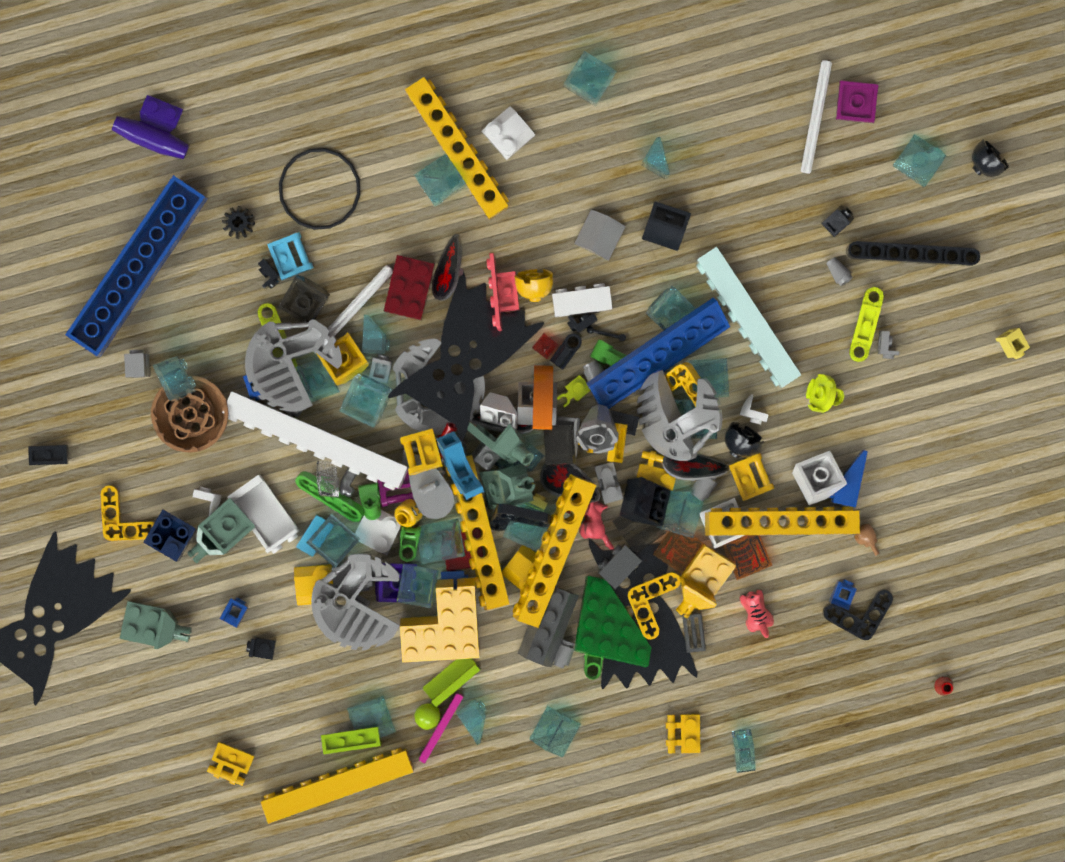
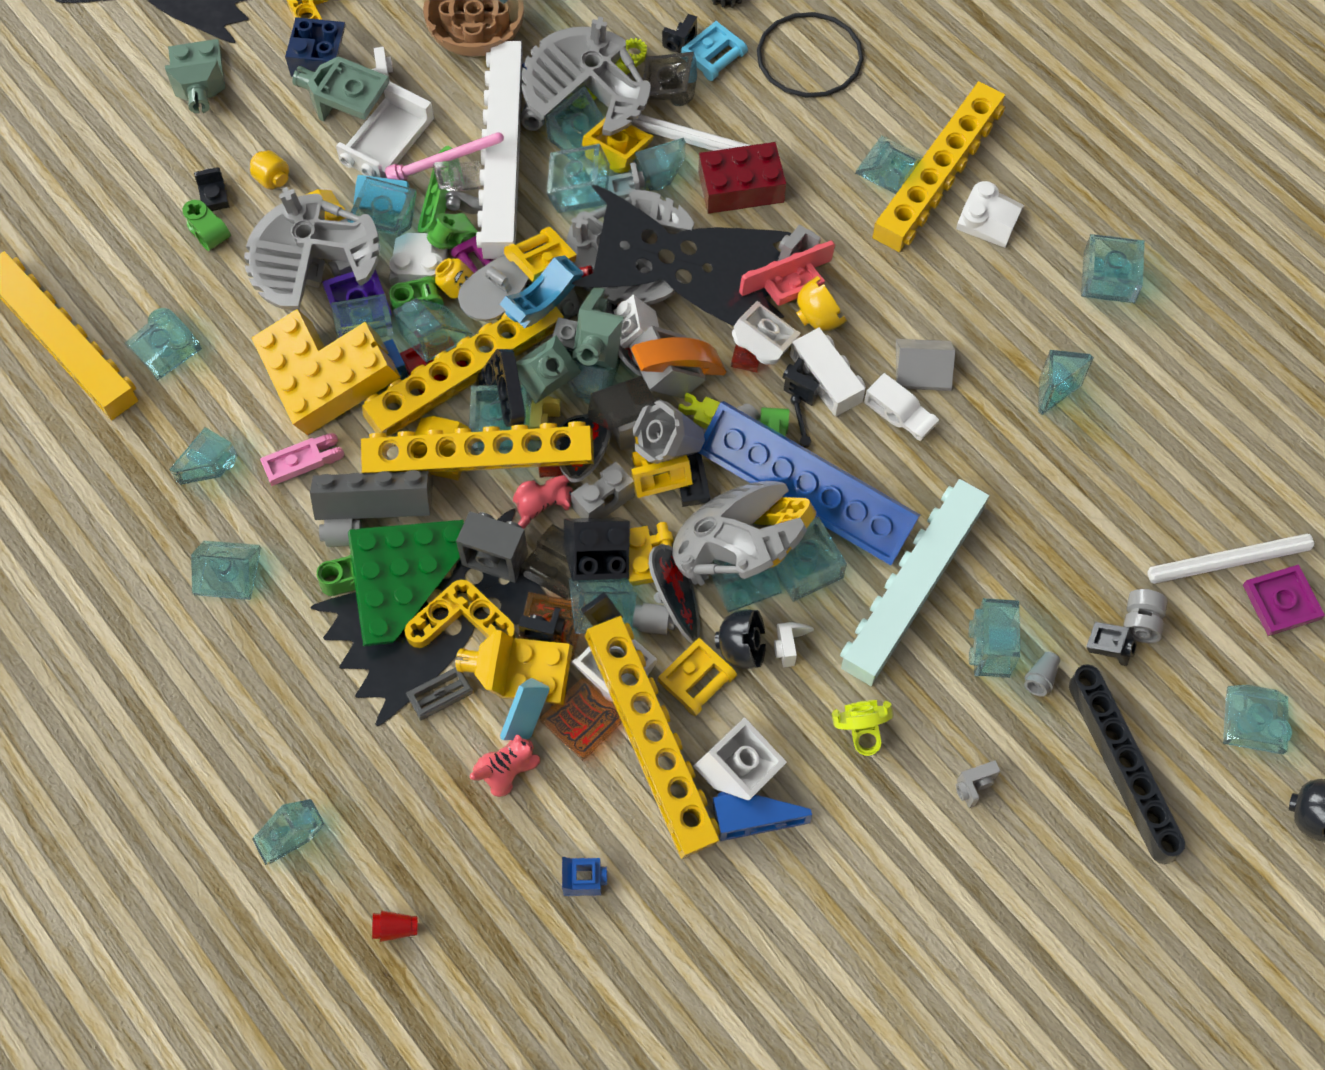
camera: 65 degrees right, 25 degrees down
(231, 619) = (245, 143): blue window -> none
(232, 758) = (55, 211): yellow plate -> none
(261, 603) = (269, 169): none -> yellow head
(294, 661) = (204, 224): none -> bright green piece
(303, 518) = (402, 172): none -> bright pink piece
(350, 740) = (123, 322): lime panel -> none
(427, 716) = (189, 400): lime piece -> none
(441, 727) = (178, 423): dark pink tile -> none
(448, 270) = (788, 210): shield -> none
(450, 679) = (251, 415): lime panel -> none
(477, 279) = (799, 240): none -> light grey bracket
(498, 662) = (301, 458): none -> bright pink hinge
(541, 330) = (763, 334): none -> white slope
(565, 352) = (753, 379): black piece -> none
(628, 267) = (899, 407): none -> white piece
(666, 226) = (981, 428): black slope -> none
(669, 308) = (876, 470): clear light blue slope -> none
(683, 559) = (540, 629): none -> black bracket
(689, 733) = (287, 747): yellow plate -> none
(694, 519) = (600, 610): none -> black plate
(733, 588) = (525, 710): none -> medium azure slope
(809, 291) = (995, 638): none -> clear light blue brick
(824, 712) = (393, 926): none -> red cone
(827, 187) = (1145, 615): none -> light grey wheel
(859, 623) = (550, 922): black beam -> none
(866, 324) = (990, 742): neon yellow plate -> none
(867, 537) = (685, 875): medium nougat piece -> none
(1013, 343) = (1089, 967): light yellow brick -> none

